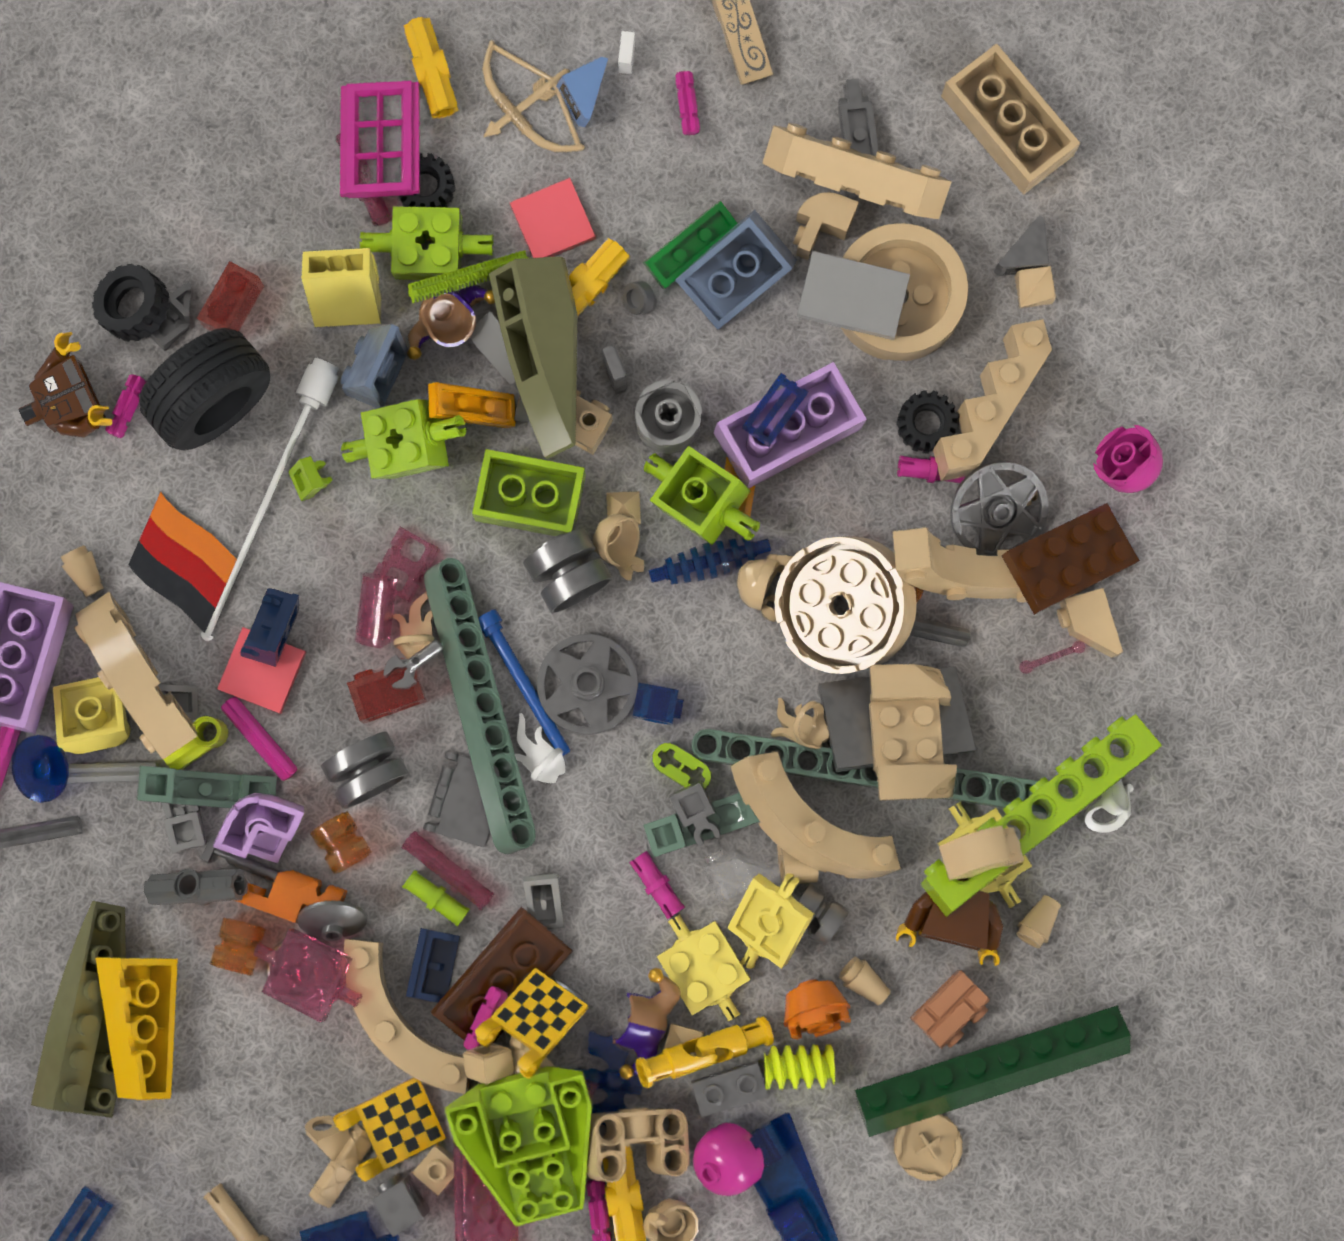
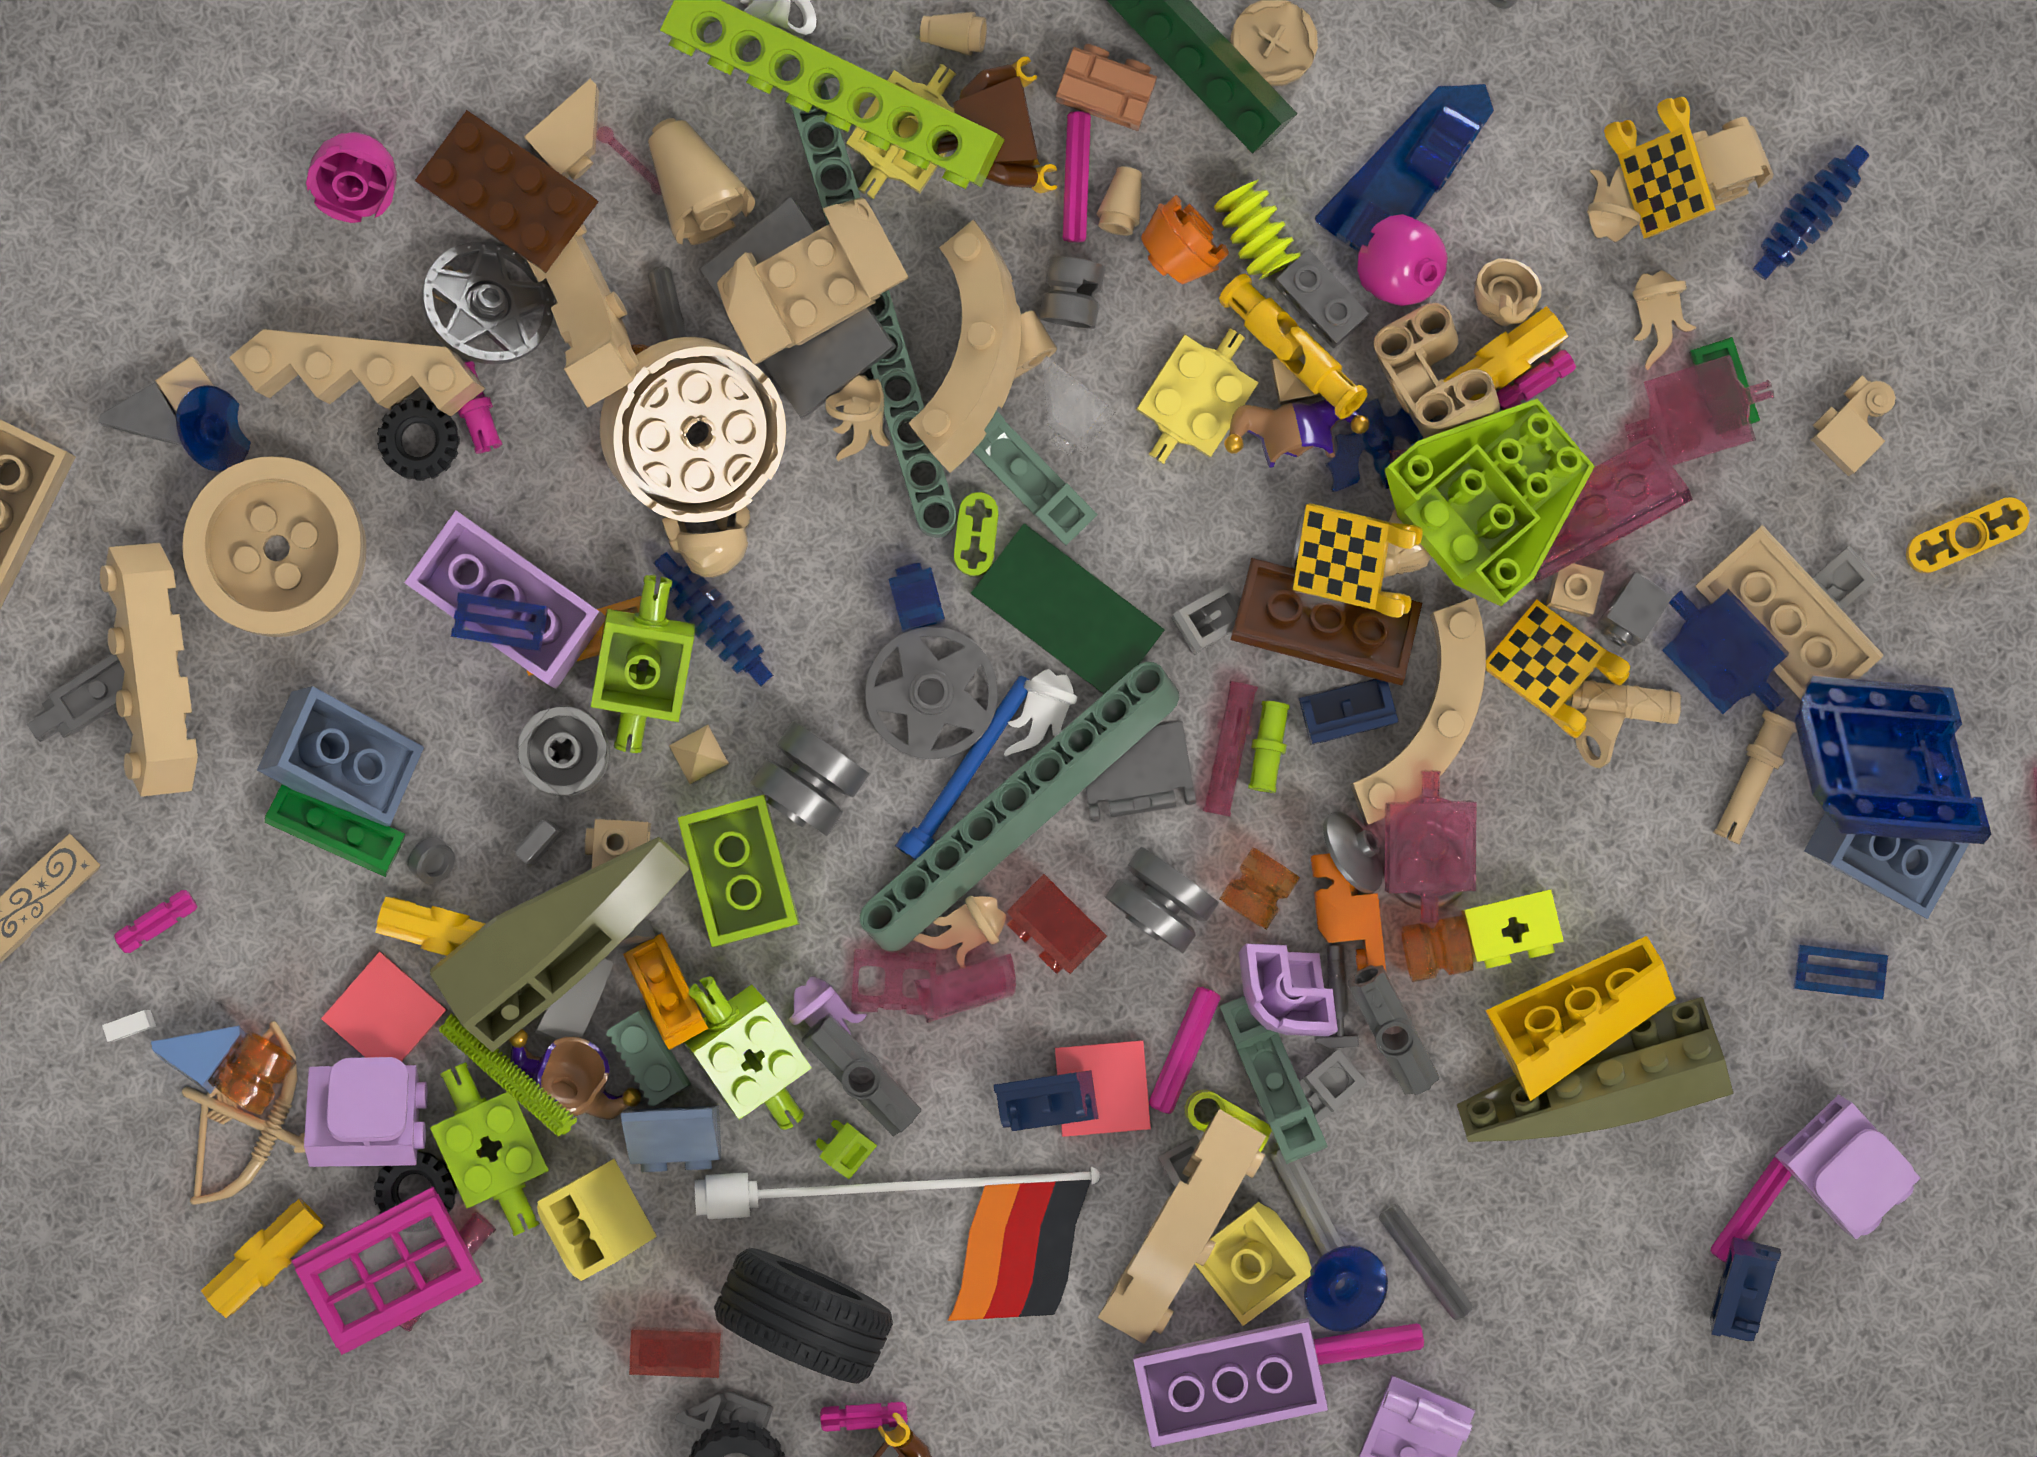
camera: 115 degrees left, 5 degrees up
(83, 570) = (1088, 1362): tan cone -> none
(232, 1024) = (1533, 910): none -> neon yellow brick
(333, 516) = (881, 1094): none -> dark grey piece
(406, 508) = (818, 1000): none -> lavender piece
(411, 664) = (1010, 906): flat silver bar -> none
(418, 373) = (648, 1057): none -> sand green brick
(488, 1063) = (1428, 586): tan slope -> none
(490, 172) = (364, 1113): none -> lavender brick
(495, 998) = (1350, 616): dark pink axle -> none
(552, 113) = (257, 1057): none -> clear orange wheel
(598, 804) = (1066, 610): none -> dark green tile
(618, 542) = (746, 739): tan piece -> none
(657, 884) = (1127, 496): dark pink pin -> none
(694, 808) = (1017, 493): flat silver plate -> none
(770, 921) = (1107, 341): light yellow plate -> none
(823, 213) = (217, 684): tan brick -> none
(853, 295) = (310, 597): light grey tile -> none
(897, 958) = (1076, 176): none -> dark pink axle
(981, 852) = (914, 130): tan brick -> none
(1006, 299) = (211, 429): none -> clear blue dish
(1015, 690) = (695, 184): none -> tan cone

